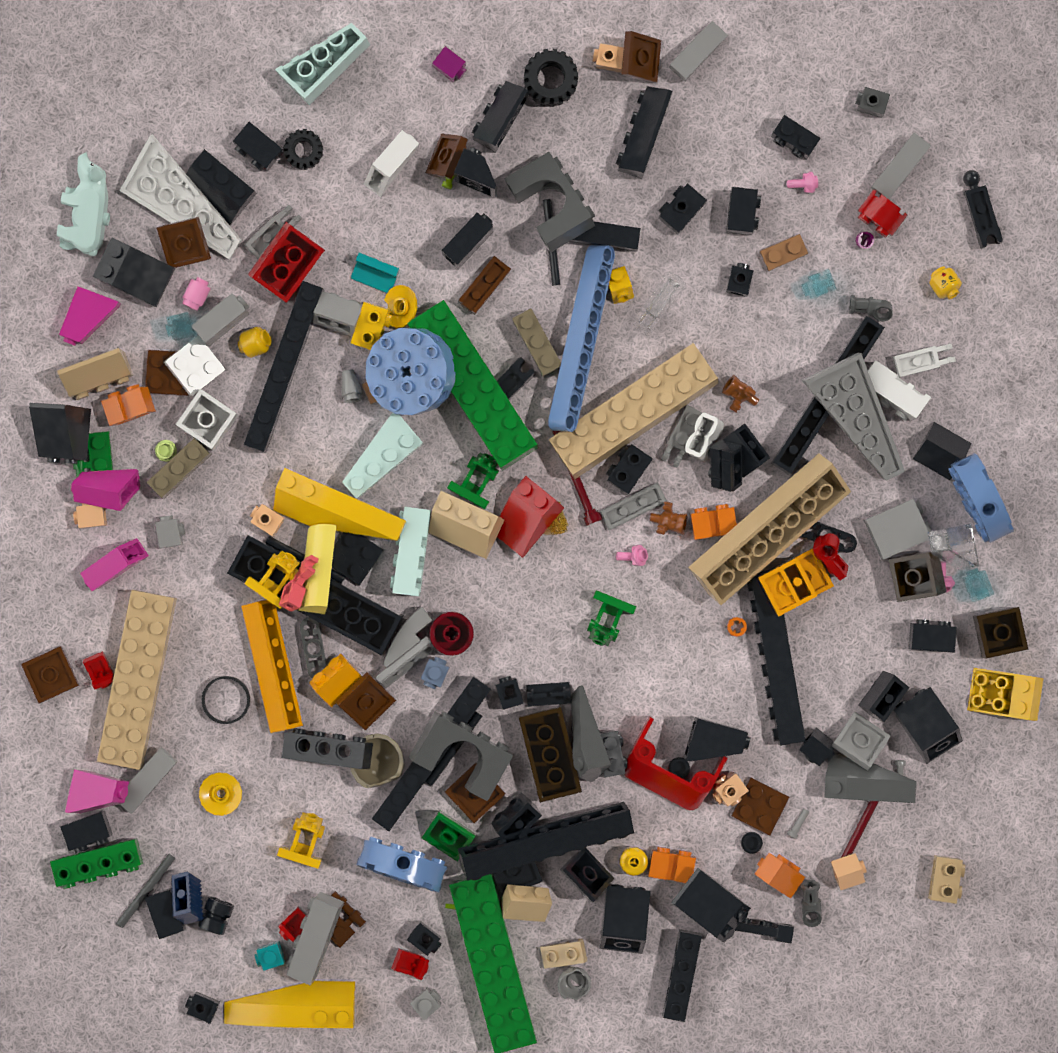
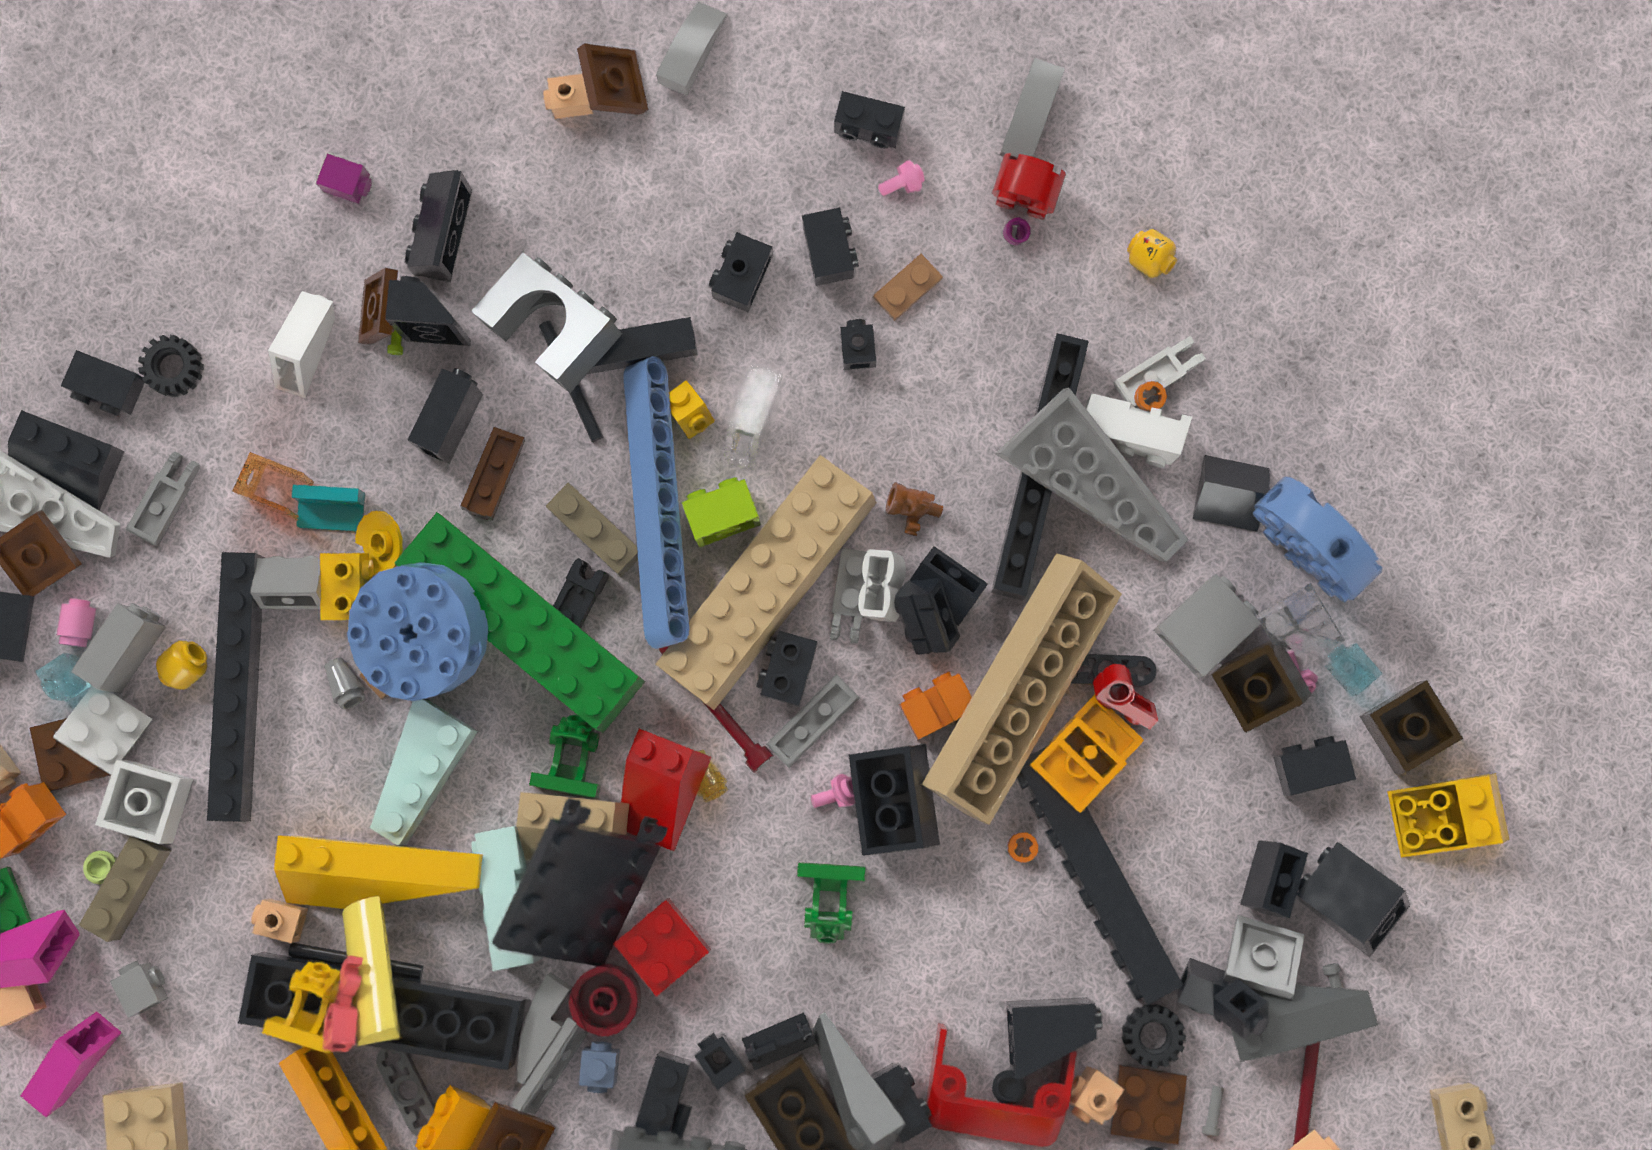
camera: 10 degrees left, 5 degrees down
(286, 262) = (190, 533): red brick -> none
(323, 63) = (162, 233): light aqua wedge -> none
(331, 239) = (258, 464): none -> clear orange piece
(355, 556) = (426, 932): black plate -> none
(460, 561) = (578, 889): none -> black plate
(496, 613) = (662, 947): none -> red brick
(555, 59) = (501, 173): black tyre -> none
(620, 358) = (720, 511): none -> lime brick
(644, 131) = (651, 180): black slope -> none
(666, 571) = (892, 802): none -> black brick
(669, 520) = (872, 723): dark orange piece -> none
(787, 775) = (1174, 1035): none -> black tyre
(819, 285) = (973, 315): clear light blue brick -> none
(837, 769) = (1241, 1009): none -> black brick
(870, 306) = (1058, 321): dark grey connector -> none
(872, 102) = (961, 36): dark grey brick -> none
(911, 367) = (1145, 387): none -> orange bush
(981, 210) = (1167, 137): black plate -> none

